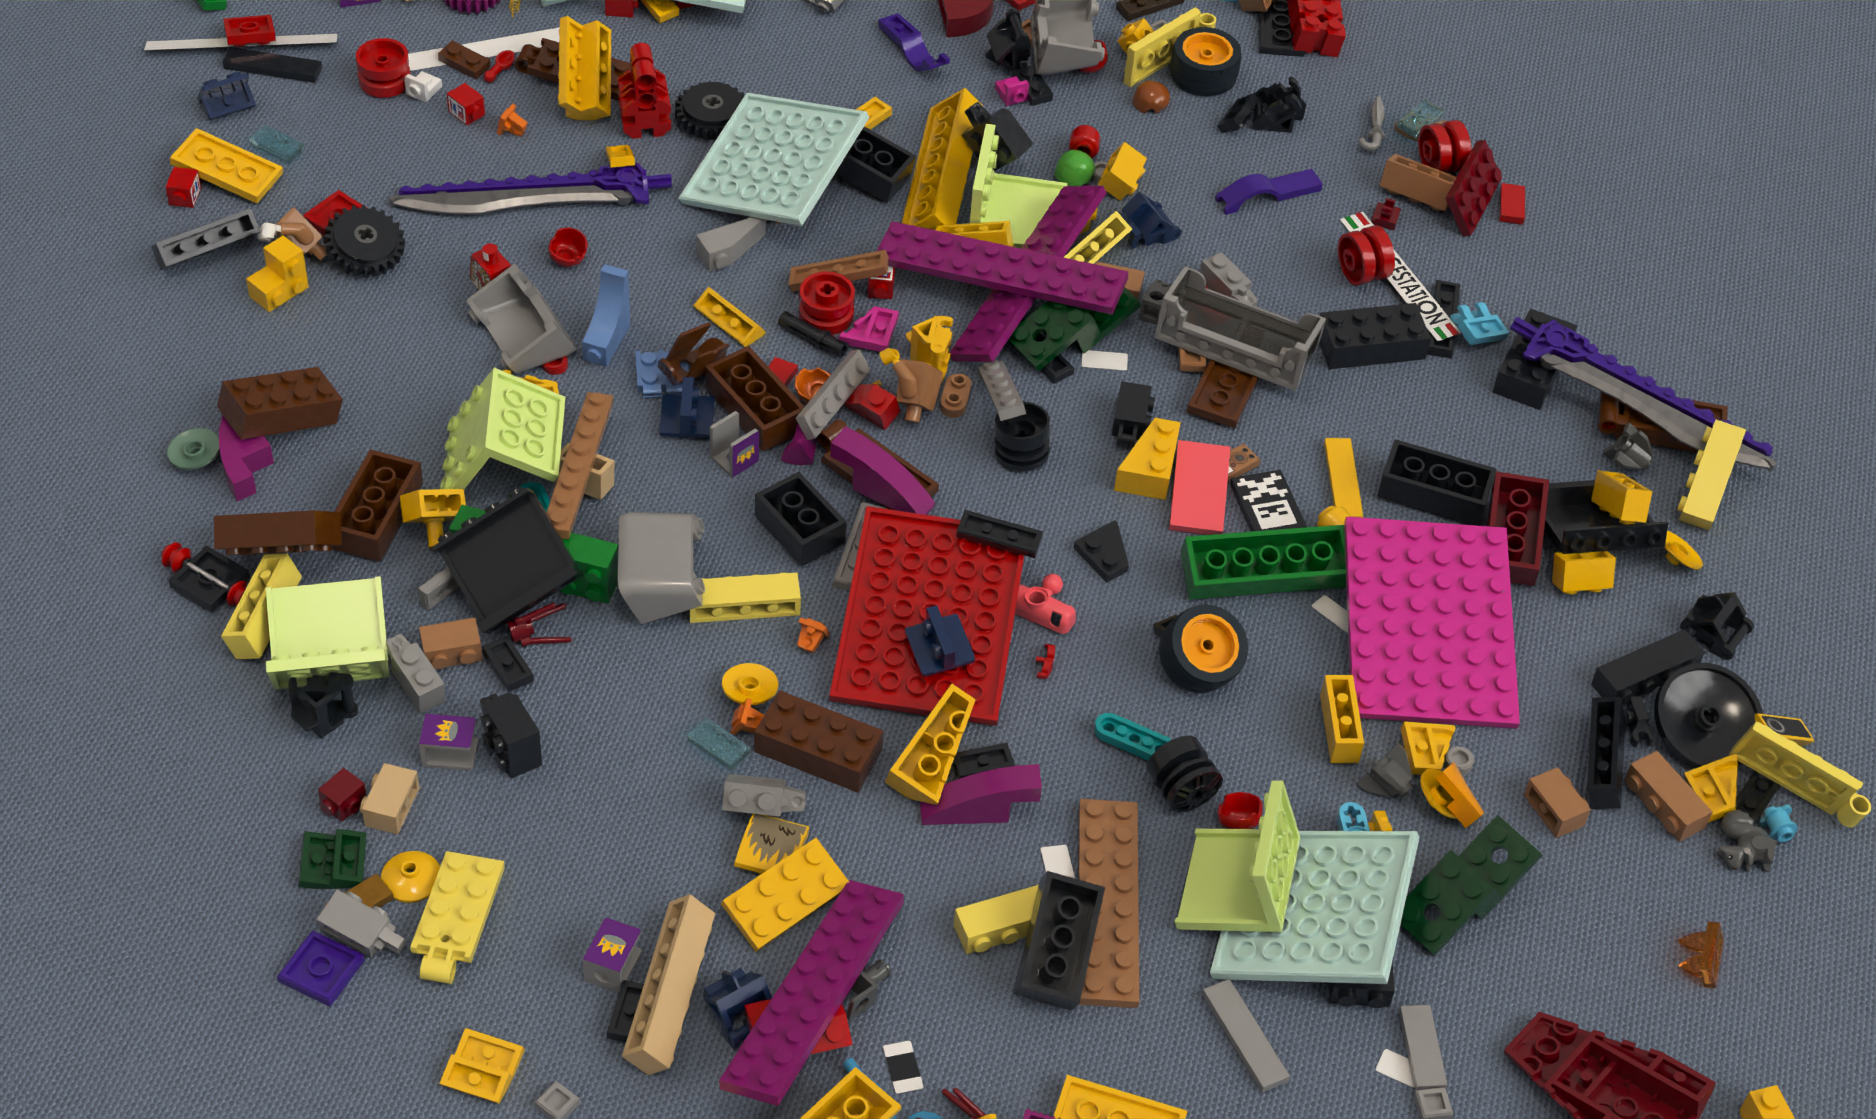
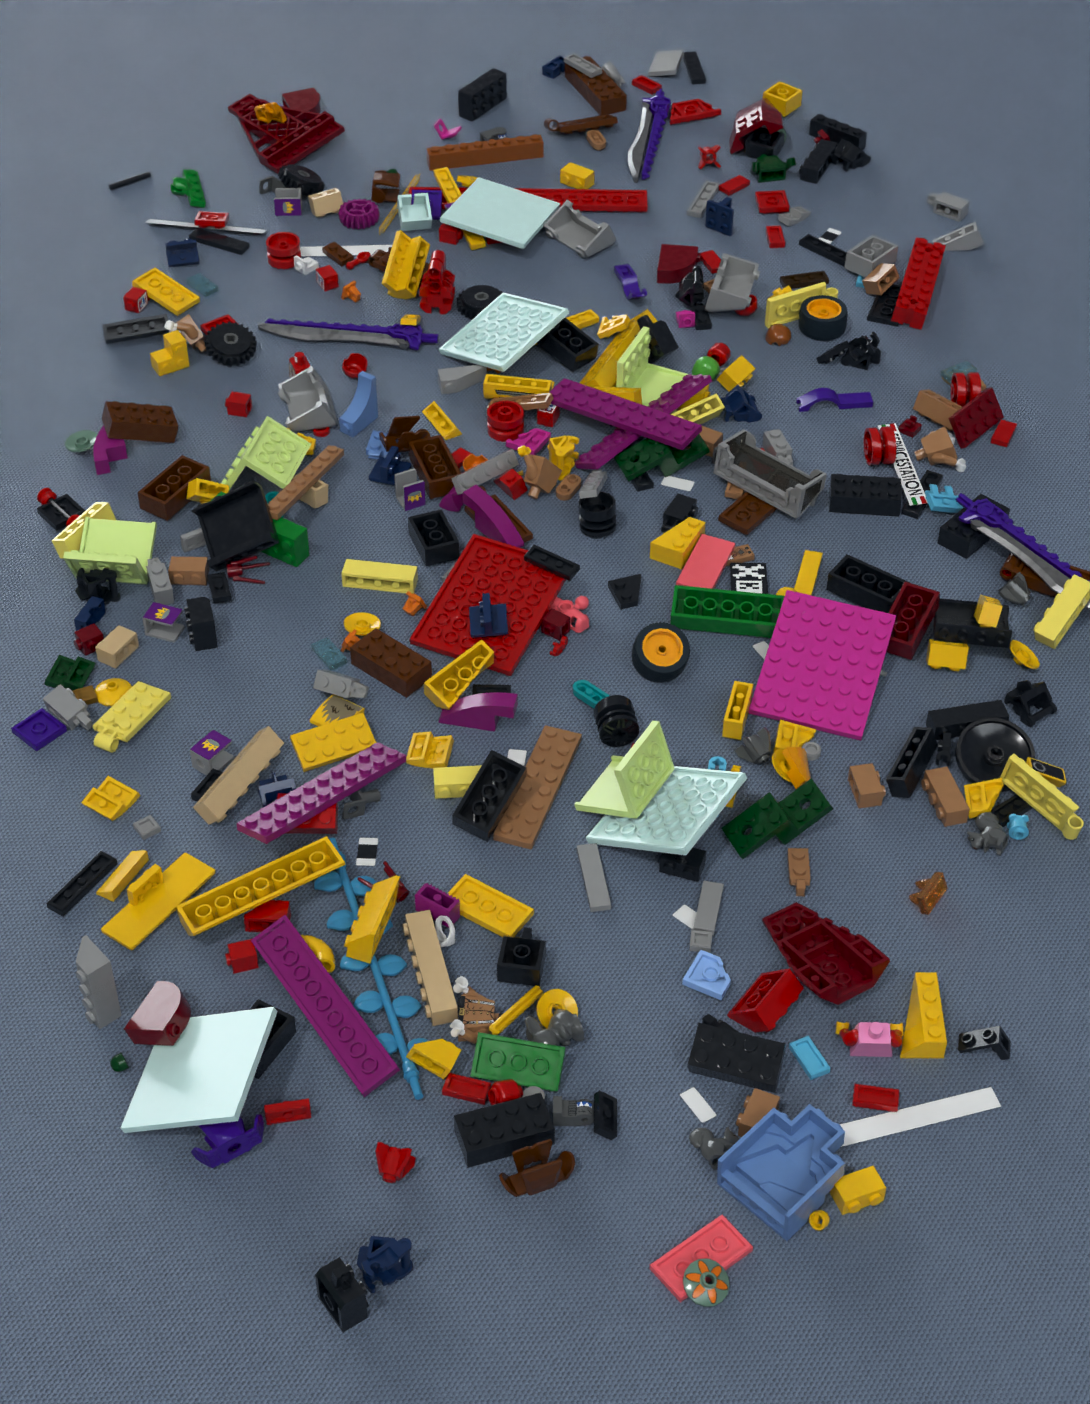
camera: 20 degrees right, 5 degrees down
(277, 532) = (107, 488): reddish brown piece -> none
(326, 752) = (90, 613): none -> dark blue piece
(415, 341) = (239, 404): none -> red brick
(658, 563) = (326, 545): light grey windscreen -> none
(811, 246) = (506, 386): none -> yellow brick
(821, 338) = (493, 440): black pin -> none
(918, 119) = (616, 324): none -> yellow wing
(930, 876) = (429, 750): none -> yellow slope
(1030, 628) = (555, 624): none -> dark red brick
(1376, 133) = (925, 378): light grey piece -> none
(1444, 246) = (940, 450): none -> medium nougat torso
(1519, 957) = (799, 869): none -> medium nougat hinge

